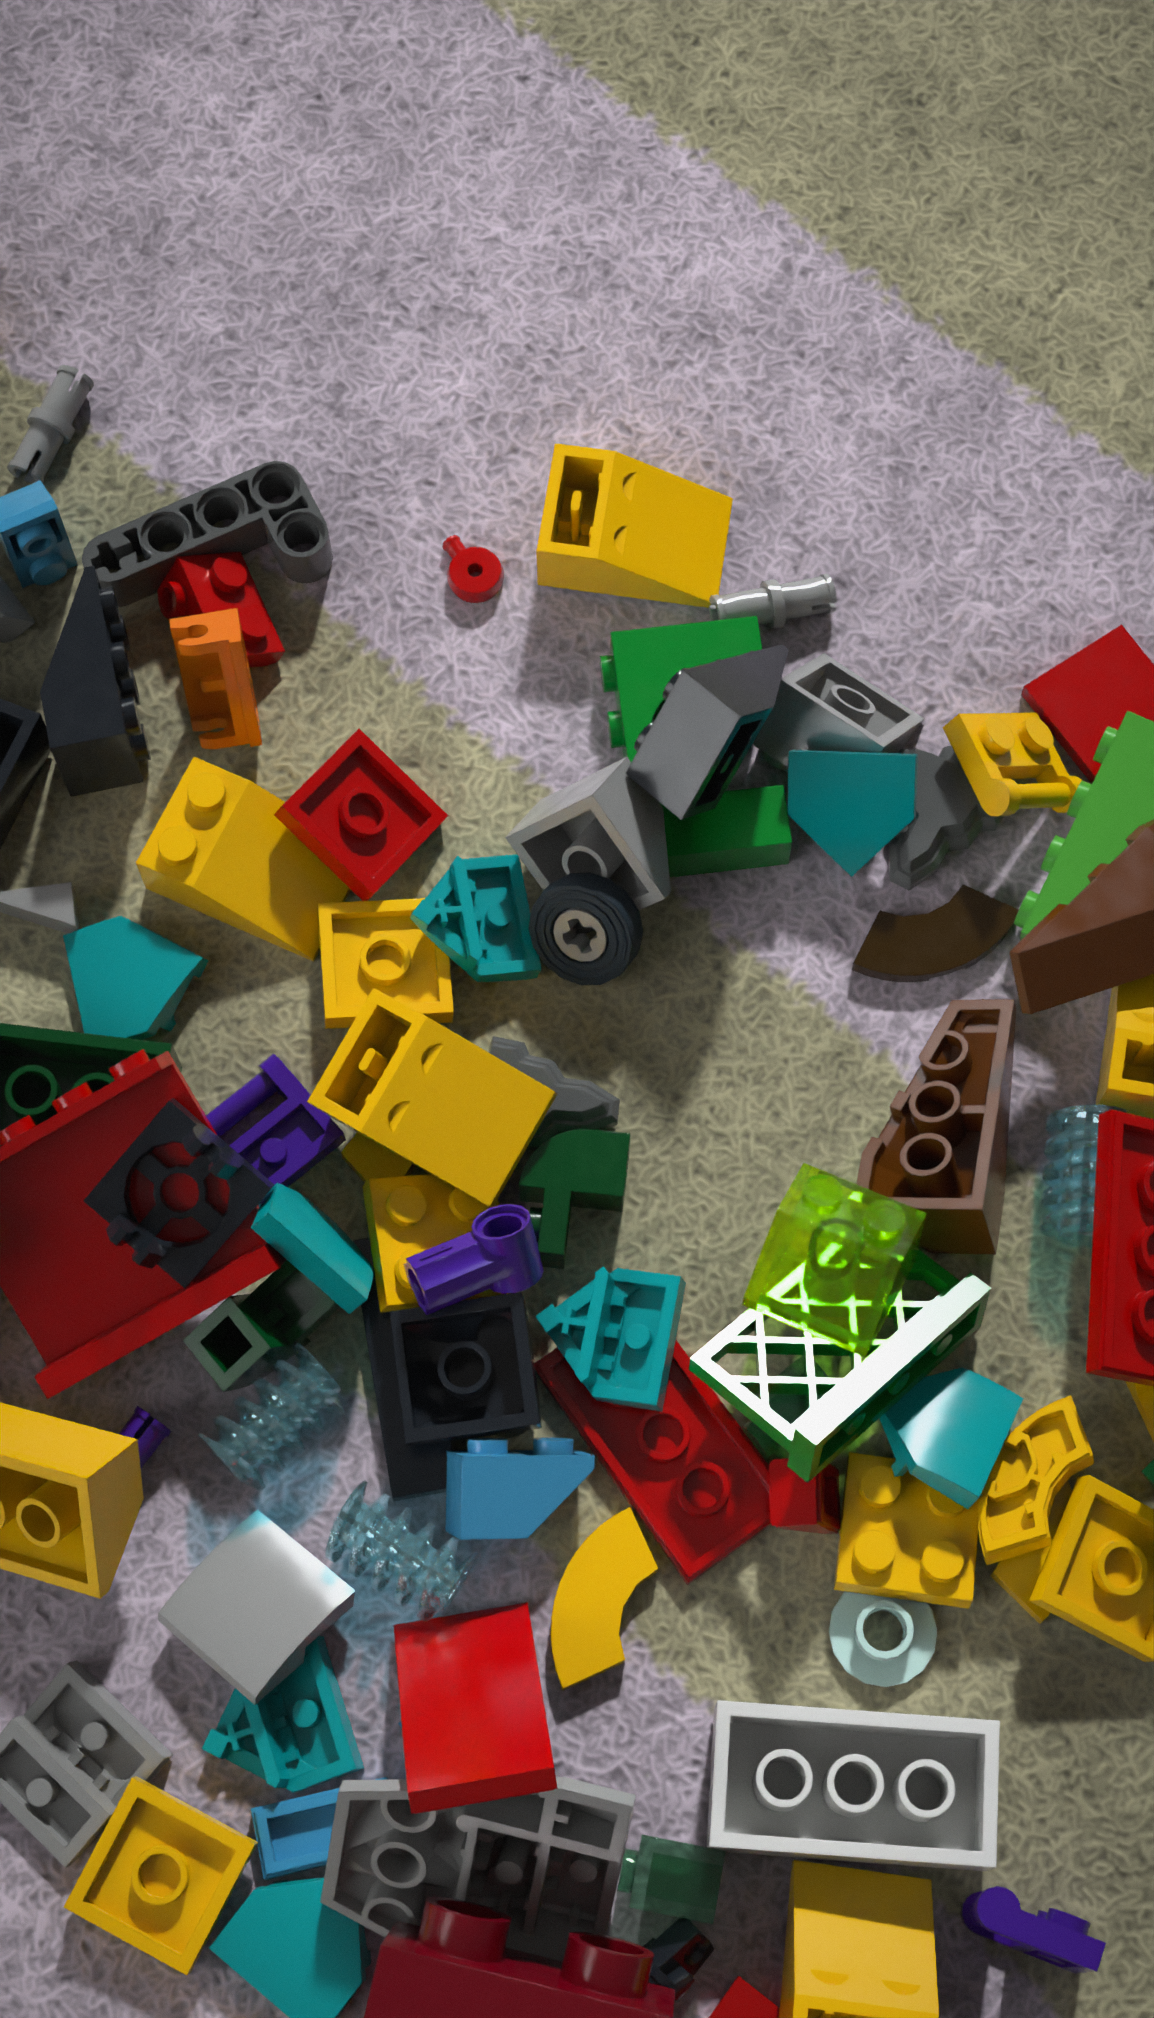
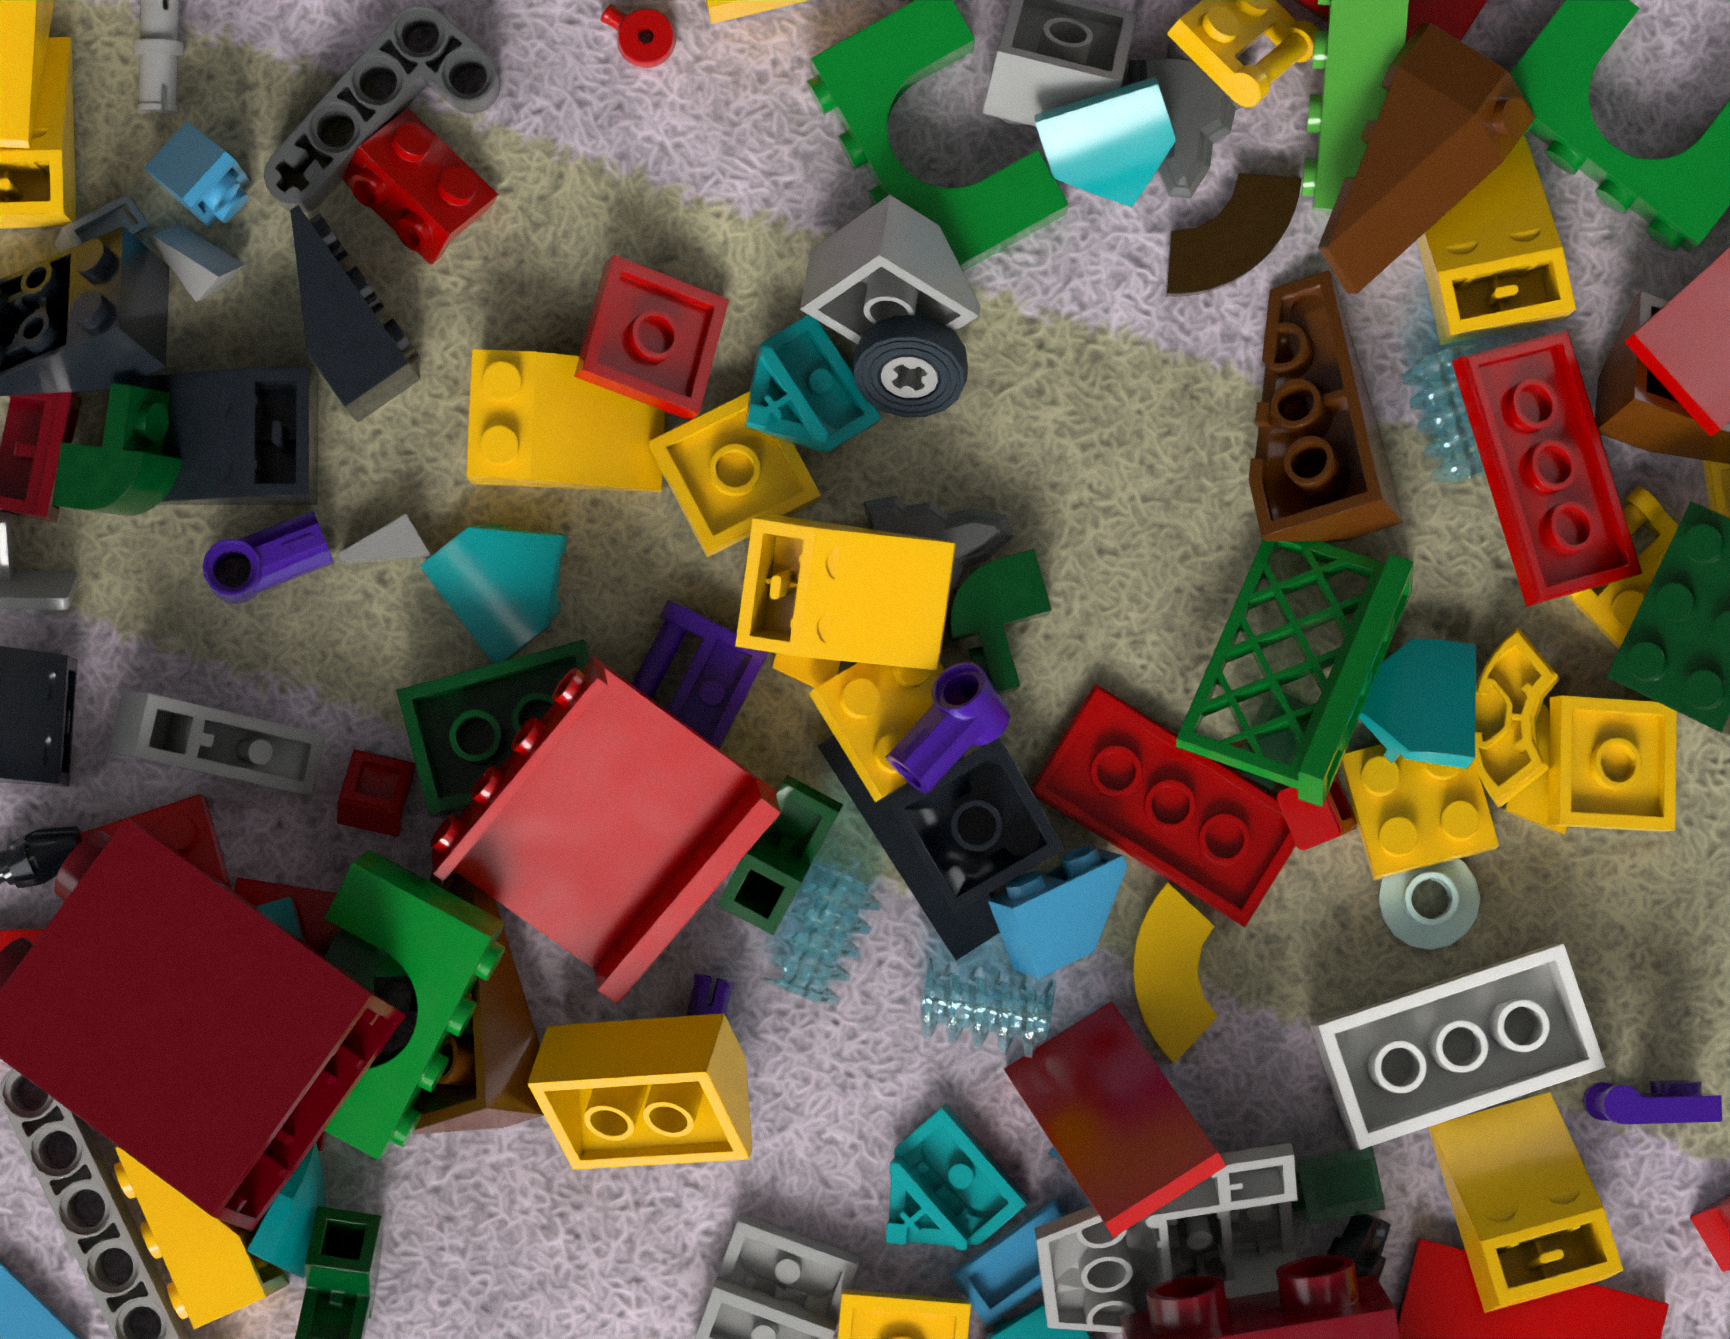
camera: 30 degrees left, 15 degrees up
(214, 1156) = (669, 732): black piece -> none
(217, 678) = (456, 259): orange hinge -> none
(256, 1606) = (880, 1104): light grey slope -> none
(314, 1246) = (796, 771): teal slope -> none
(620, 1334) = (1097, 734): teal slope -> none
(706, 729) = (958, 136): black slope -> none
(835, 1259) = (1266, 595): clear neon green slope -> none

